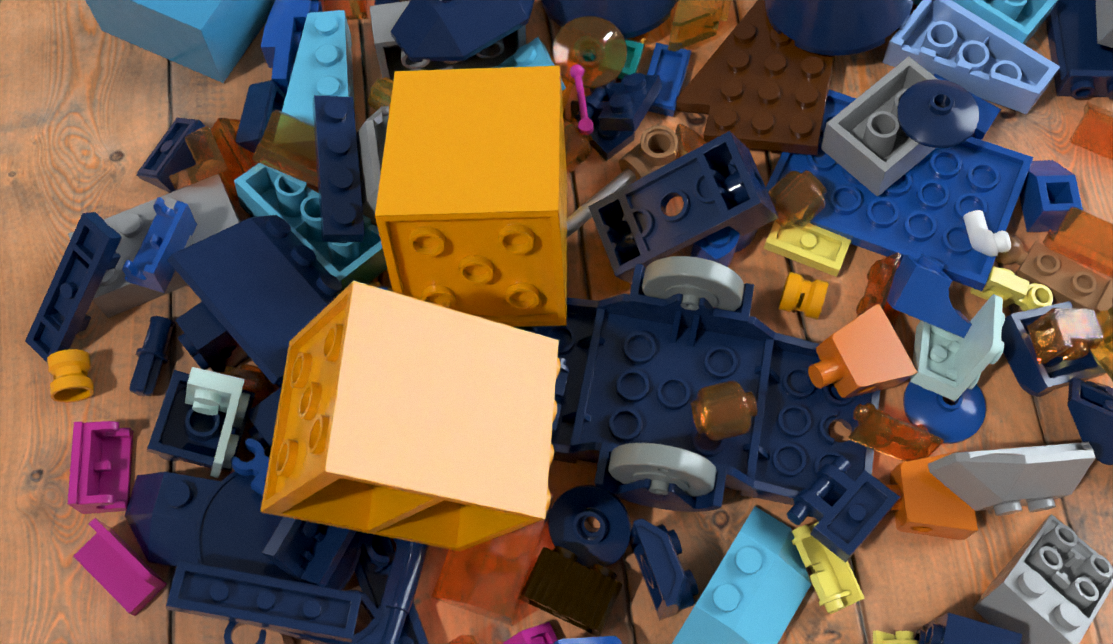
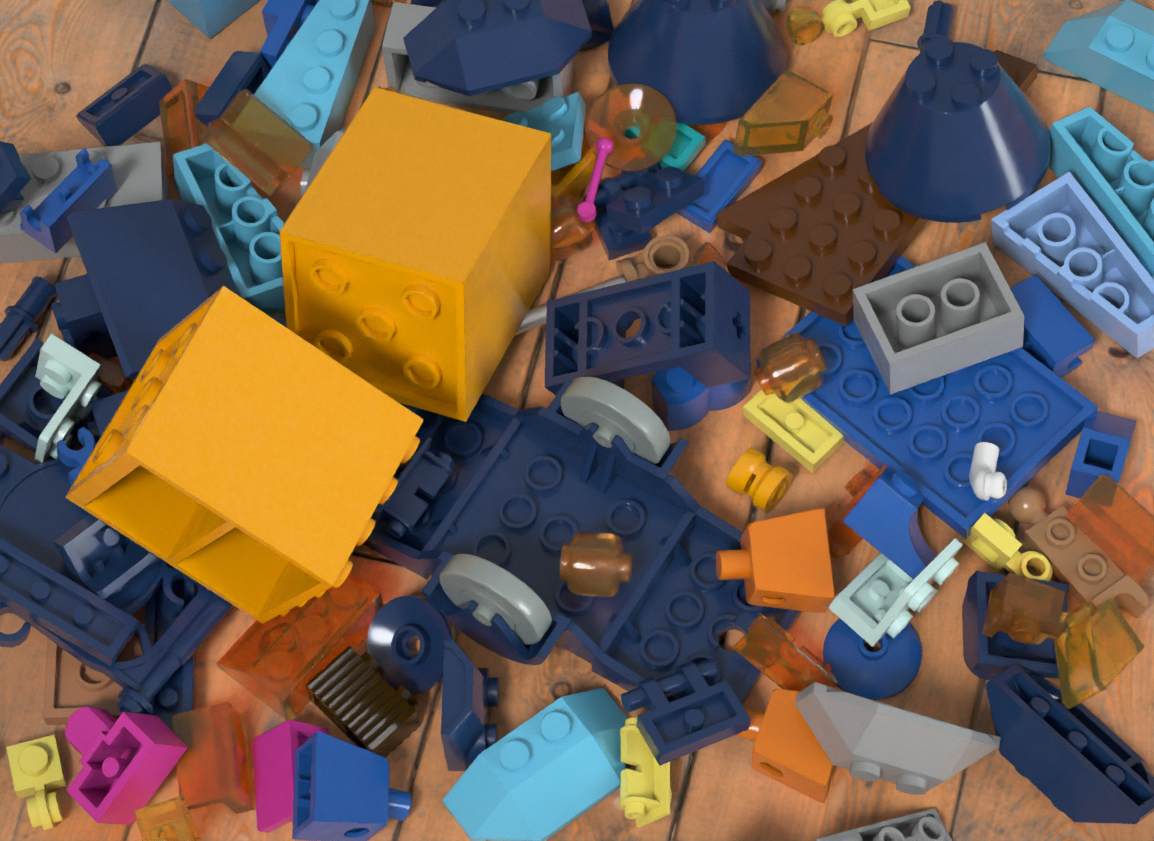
camera: 25 degrees right, 5 degrees down
(206, 155) = (155, 117): clear orange panel -> none
(338, 169) = (288, 170): dark blue plate -> none
(935, 125) = (979, 332): dark blue dish -> none

